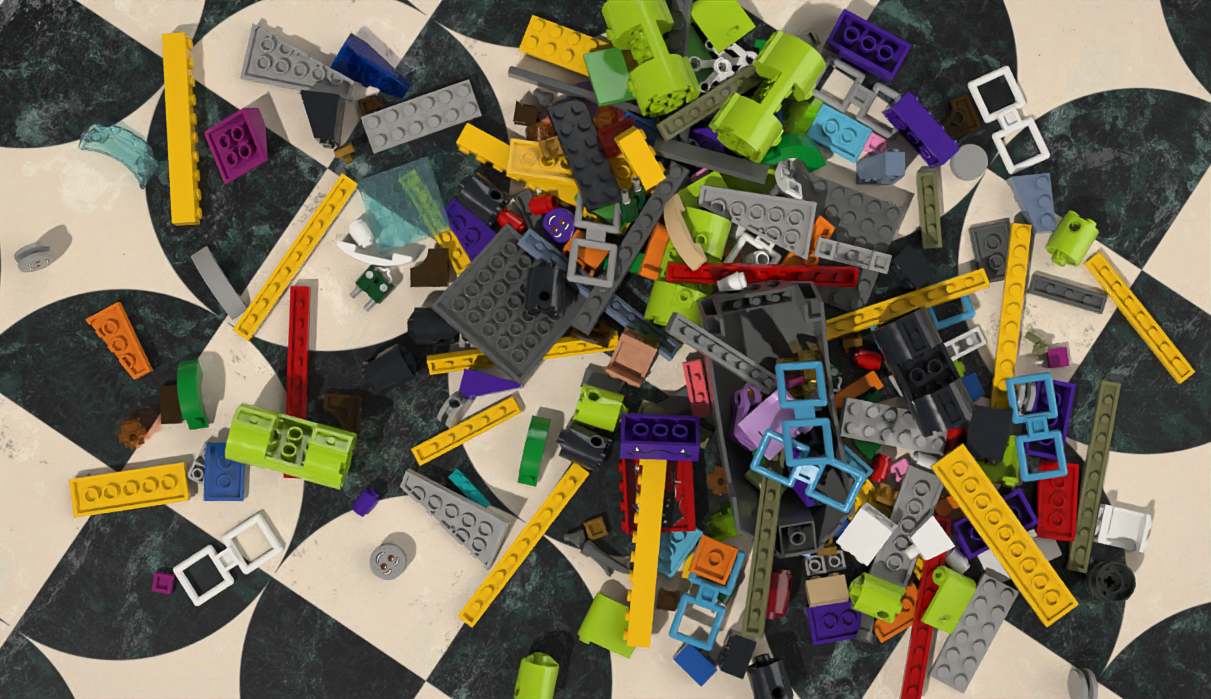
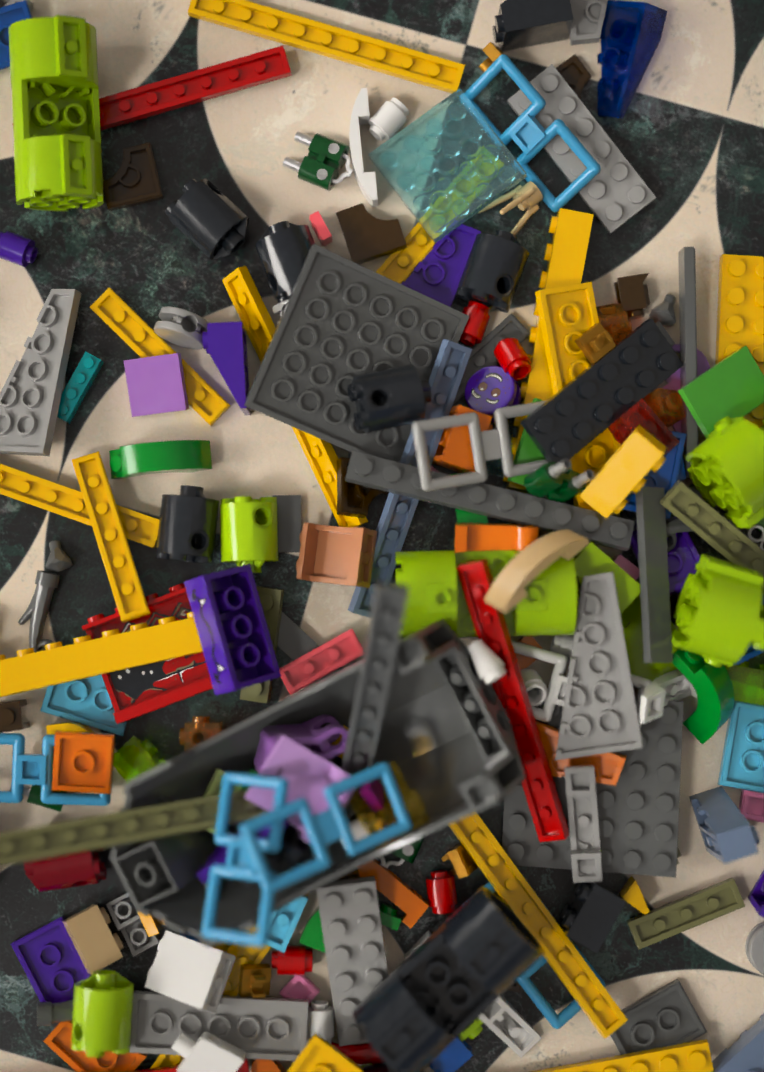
camera: 70 degrees right, 0 degrees up
(402, 145) = (532, 136): none -> dark azure bar
(418, 300) = (320, 229): none -> coral tile
(441, 161) = (524, 198): none -> tan plant
(484, 438) = (156, 384): none -> medium lavender tile
(574, 497) = (110, 537): none -> yellow tile
(595, 528) = (79, 582): pearl gold tile -> none
(906, 239) = (632, 894): none -> yellow slope

